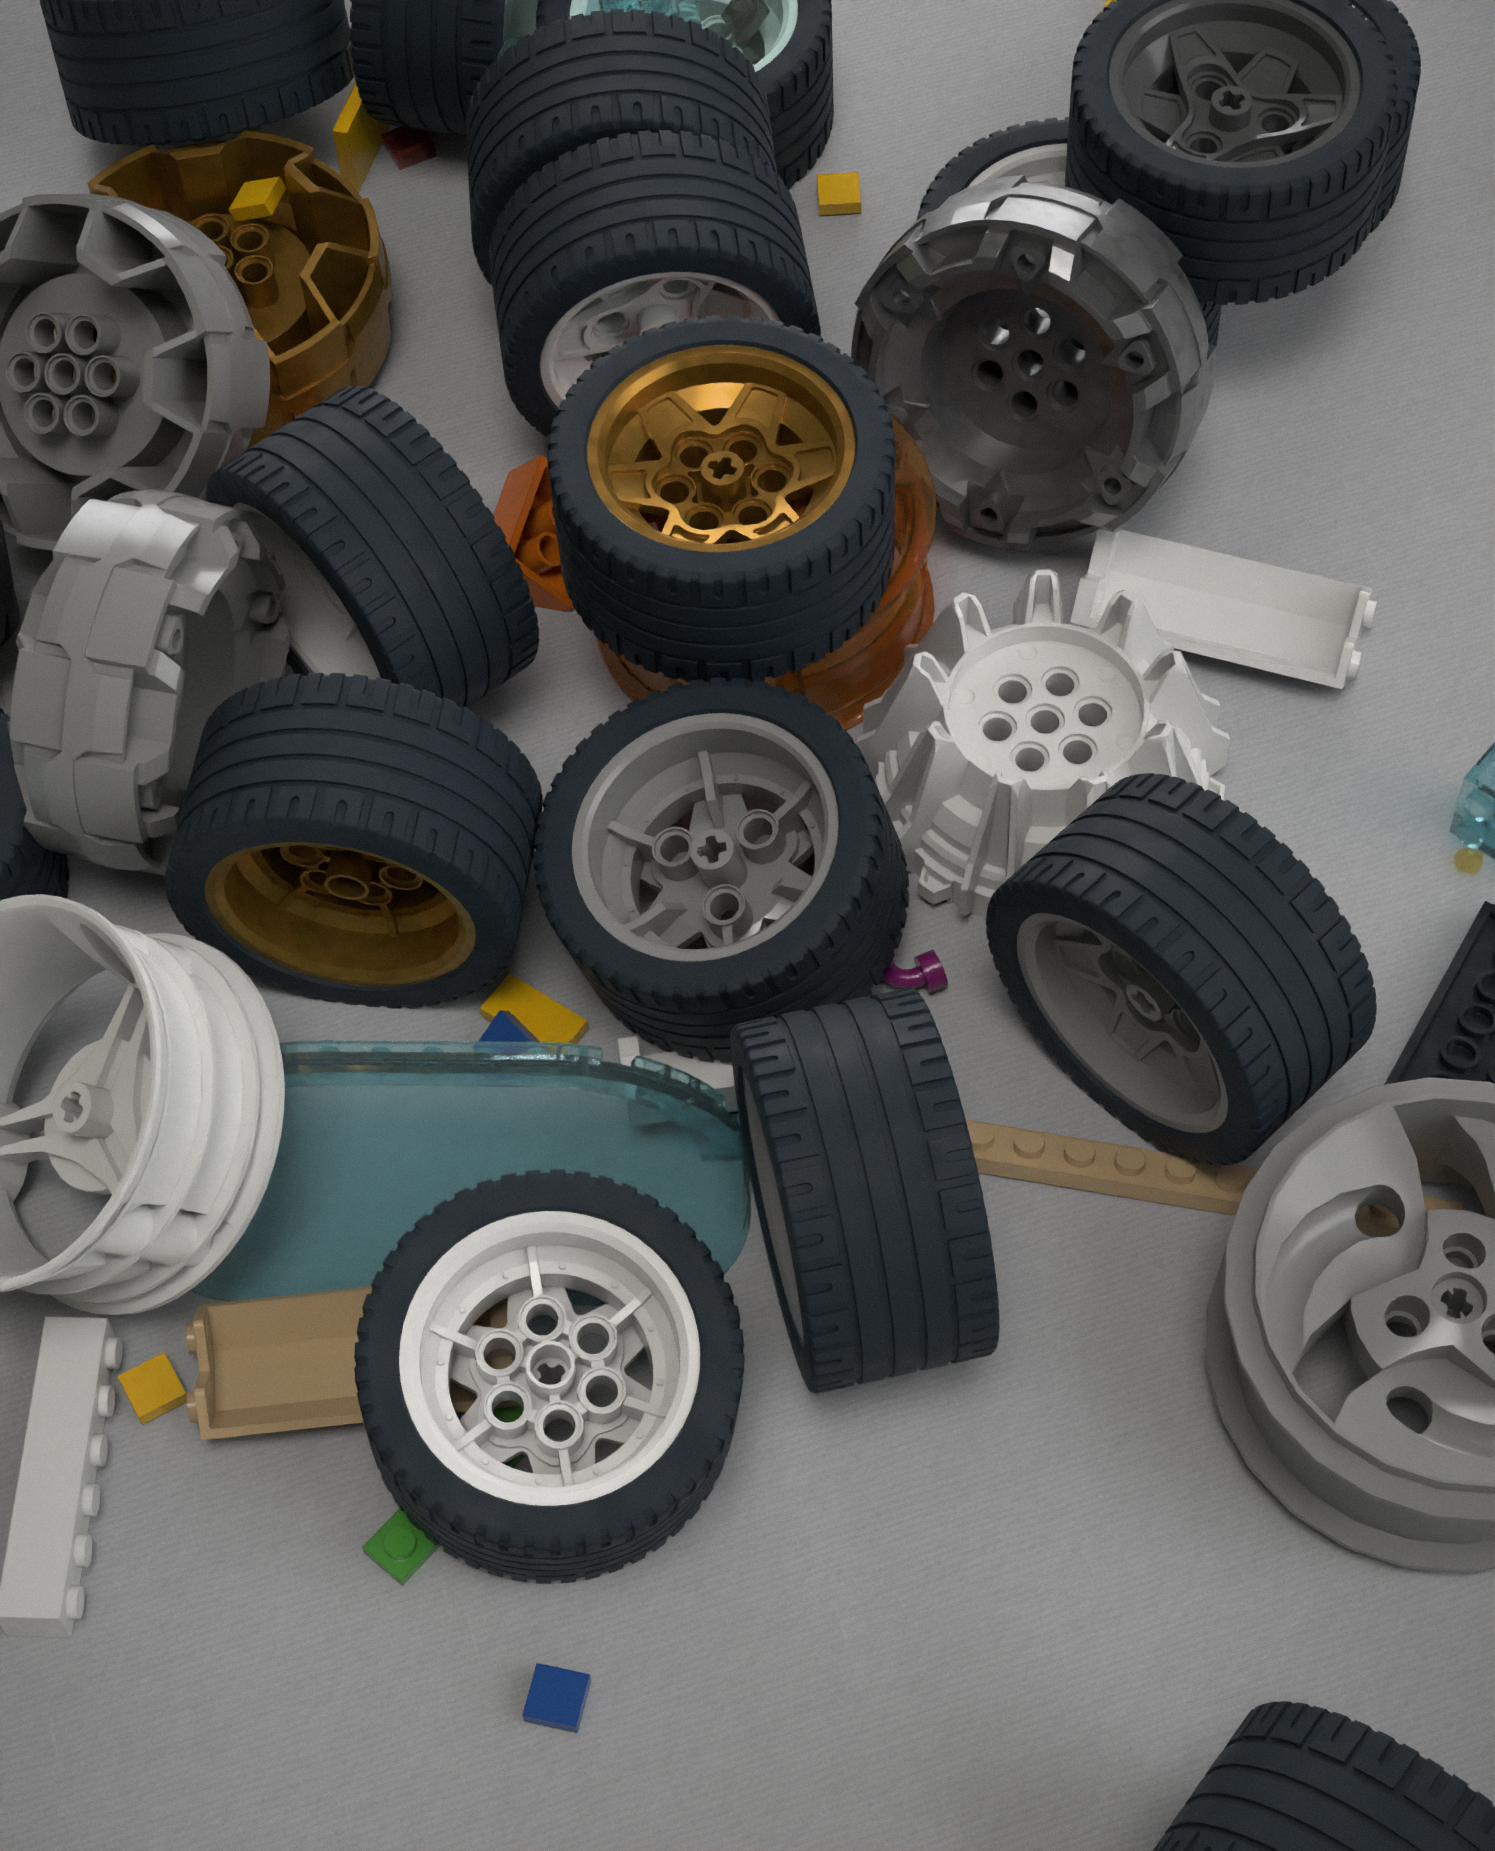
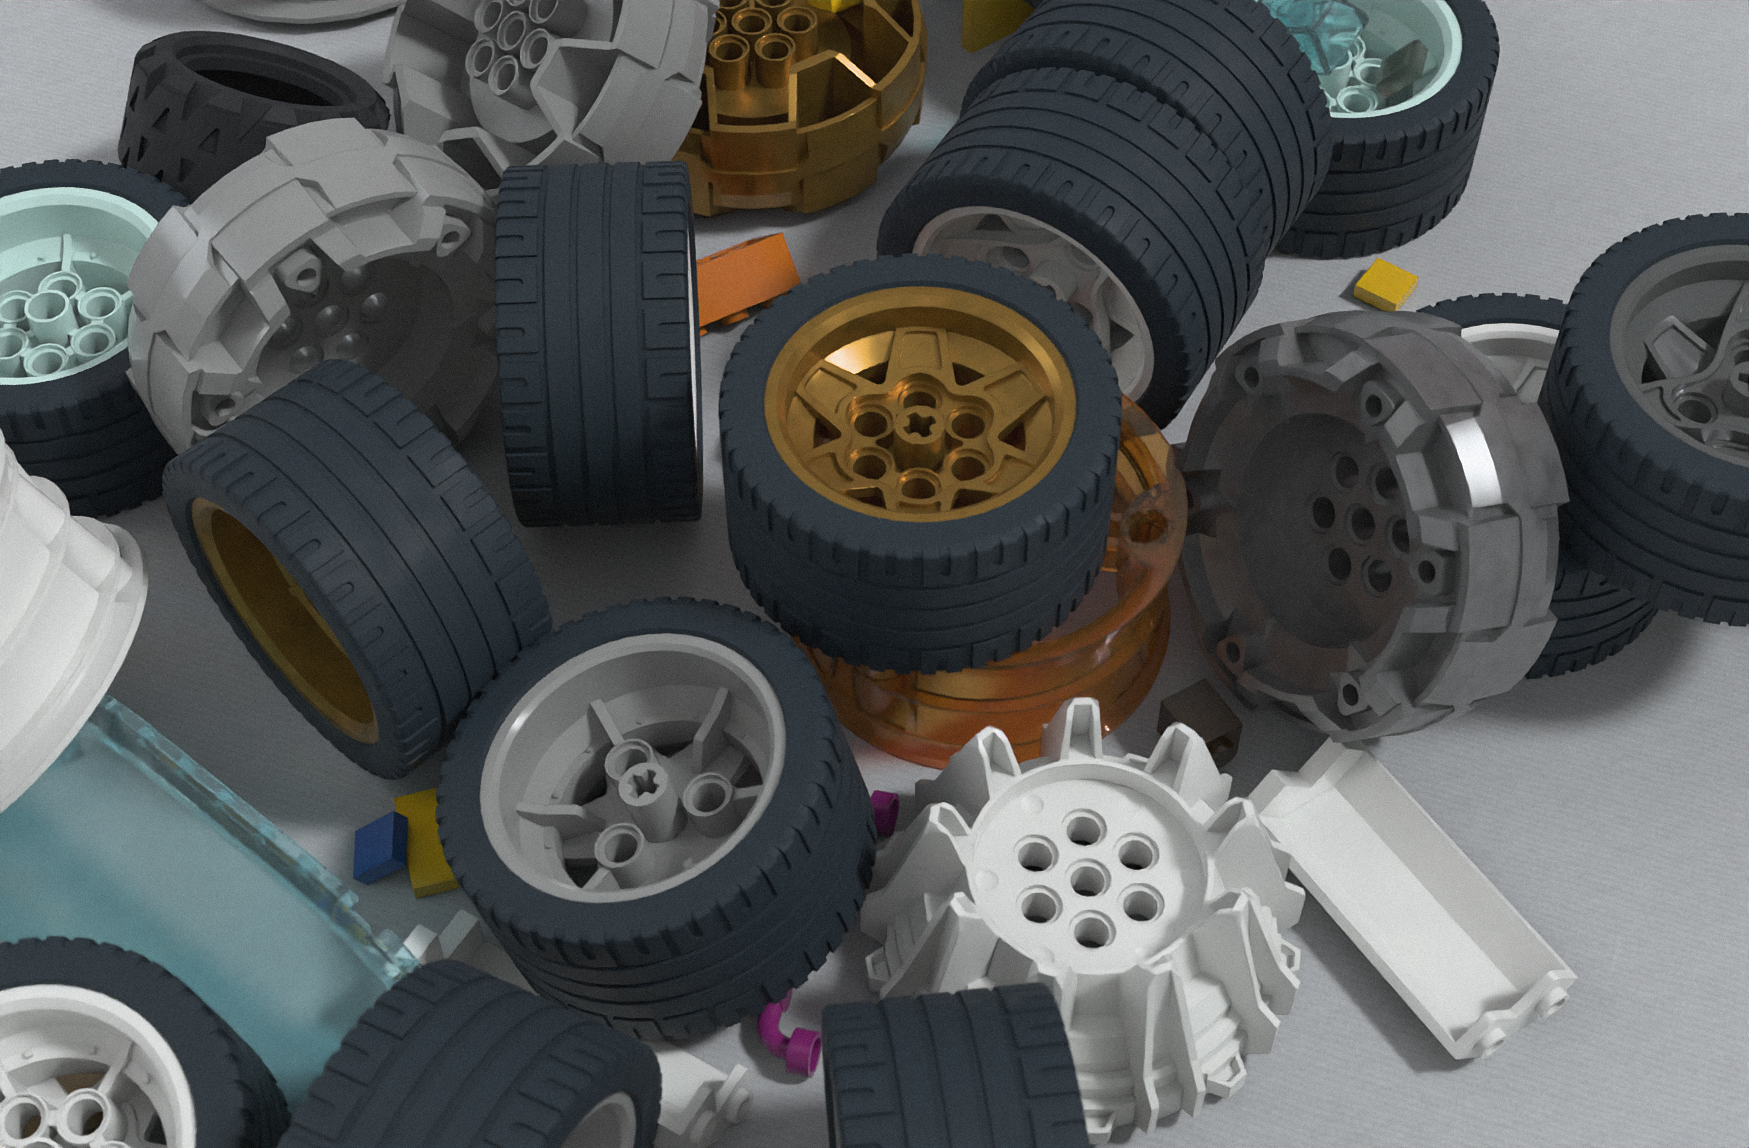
camera: 35 degrees right, 5 degrees down
(996, 582) = (1207, 715): none -> dark brown brick

